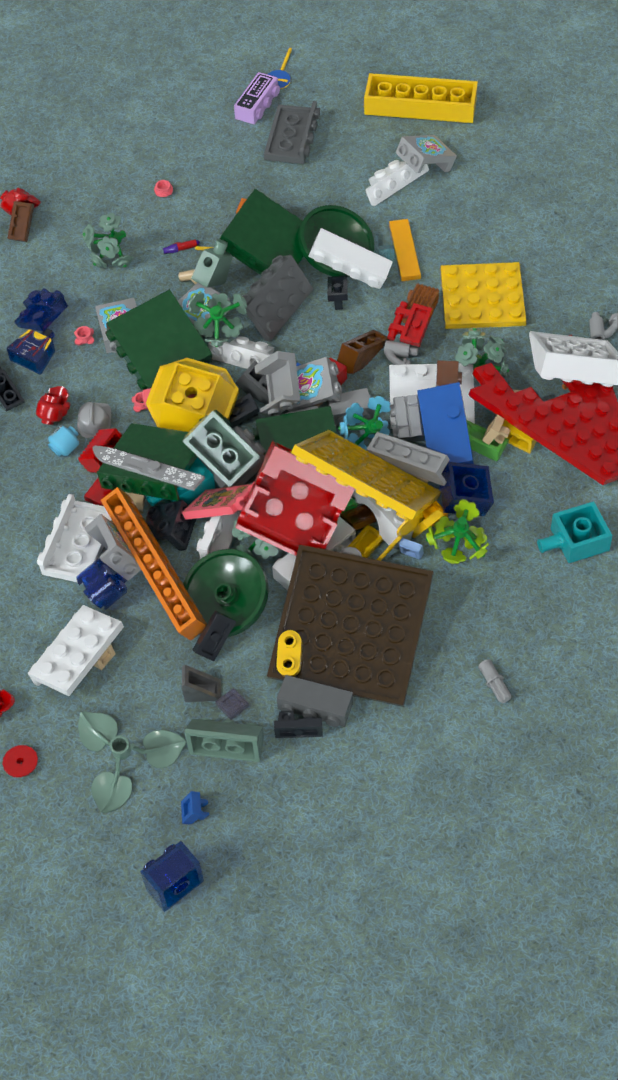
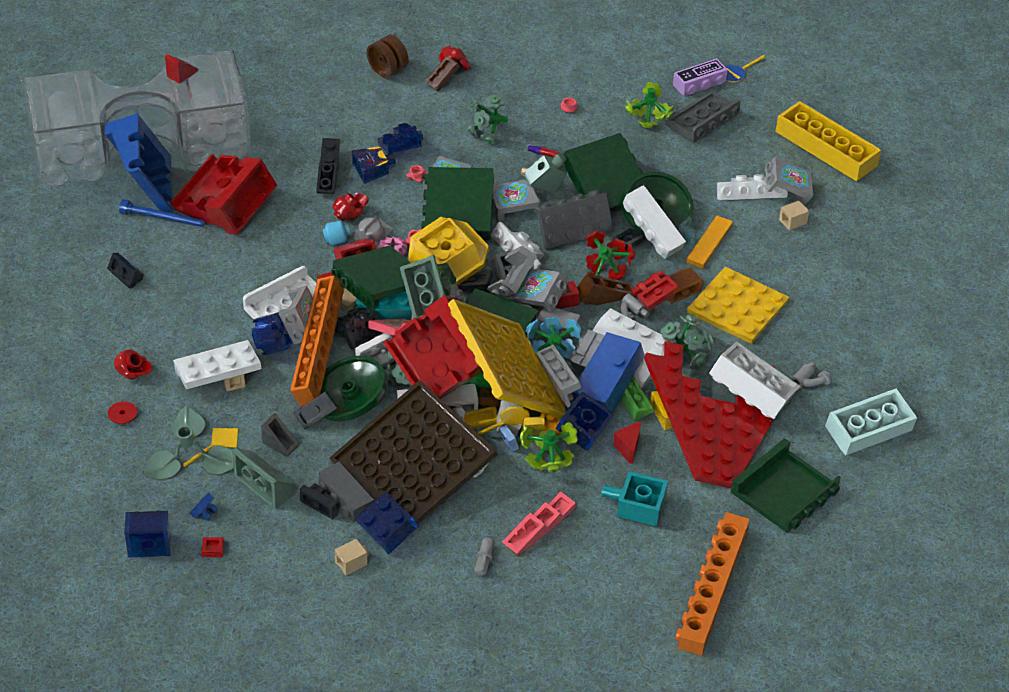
camera: 30 degrees right, 10 degrees down
(134, 416) = (400, 245): none -> bright pink gear
(142, 722) = (220, 437): none -> yellow piece
(148, 467) = (367, 275): light grey piece -> none
(217, 307) = (511, 202): sand green plant -> none
(232, 704) = (291, 462): tile -> none
(238, 843) = (212, 546): none -> red tile
(248, 147) = (661, 111): none -> lime plant
(289, 653) = (354, 449): yellow plate -> none
(338, 307) = (613, 249): none -> red plant
(380, 764) = (351, 556): none -> tan brick
(385, 707) = (386, 522): none -> clear blue brick
(447, 373) = (643, 333): reddish brown brick -> none
(454, 183) = (794, 215): none -> tan brick
(496, 431) = (645, 395): tan tile -> none
(512, 615) = (539, 523): none -> coral slope
(515, 485) = (627, 440): none -> red slope

